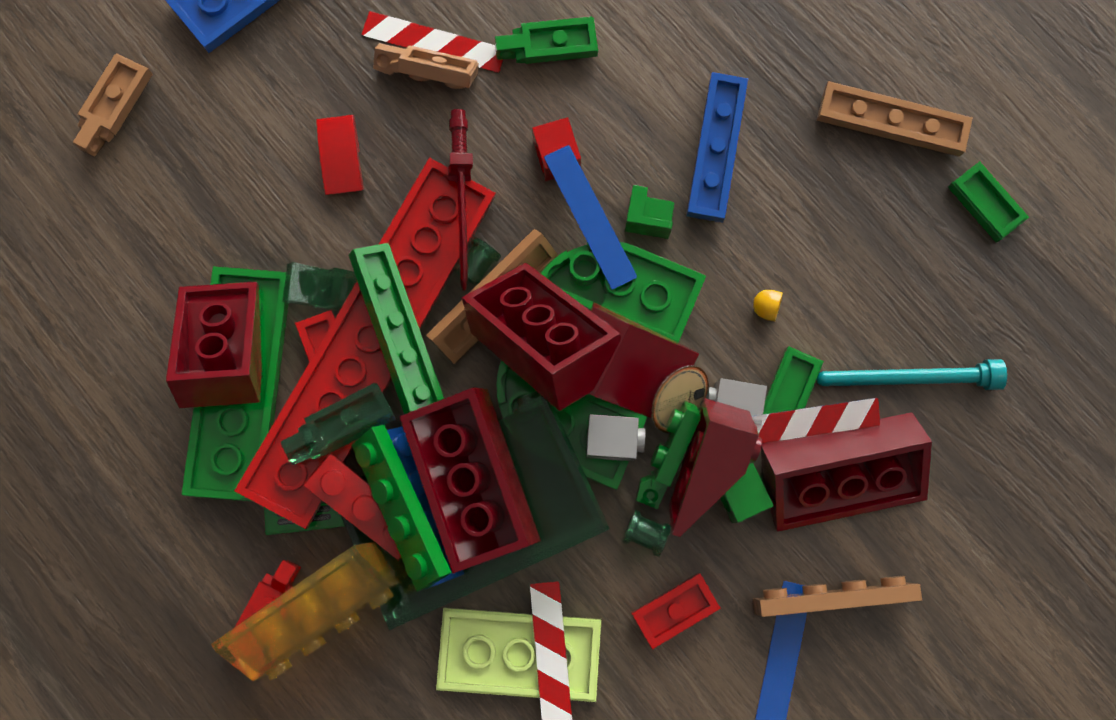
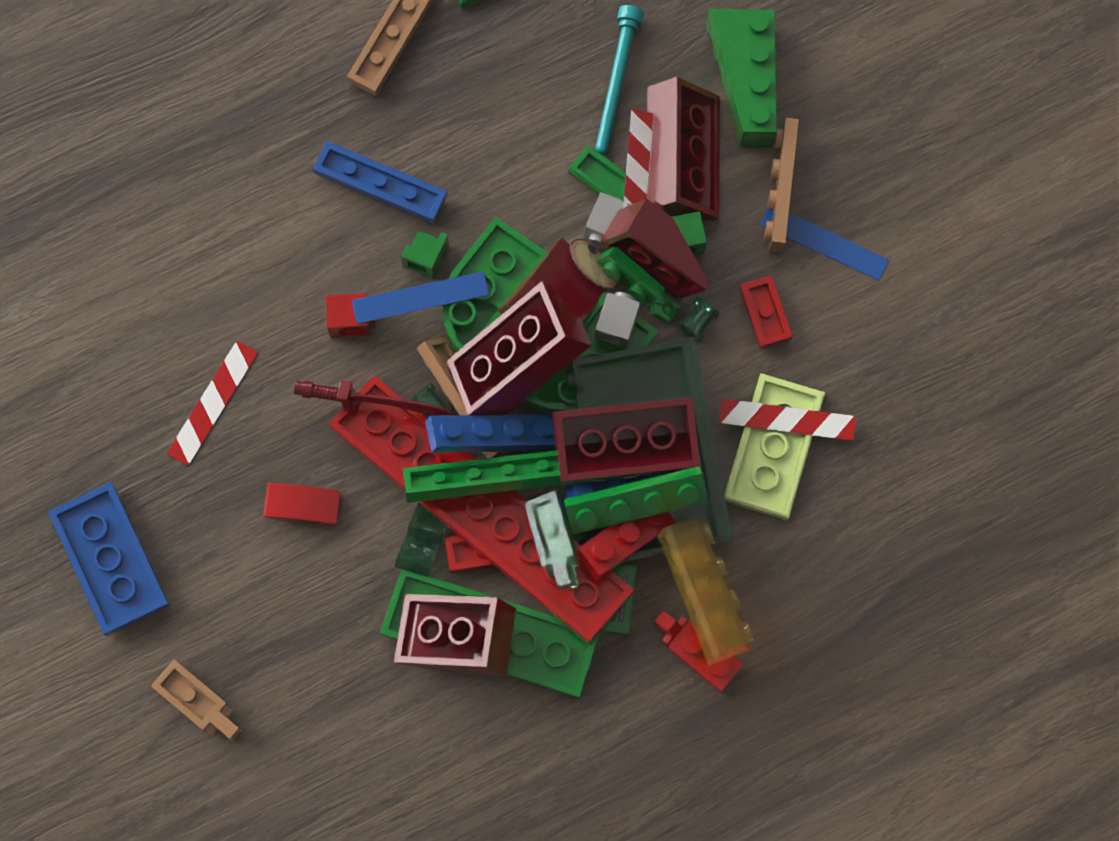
camera: 80 degrees left, 5 degrees down
(425, 65) = (238, 409): medium nougat hinge -> none
(449, 324) = (490, 433): none -> blue plate
(549, 41) = (244, 298): green hinge -> none
(767, 304) = (528, 176): yellow hinge -> none
(976, 523) = (746, 61): none -> green wedge

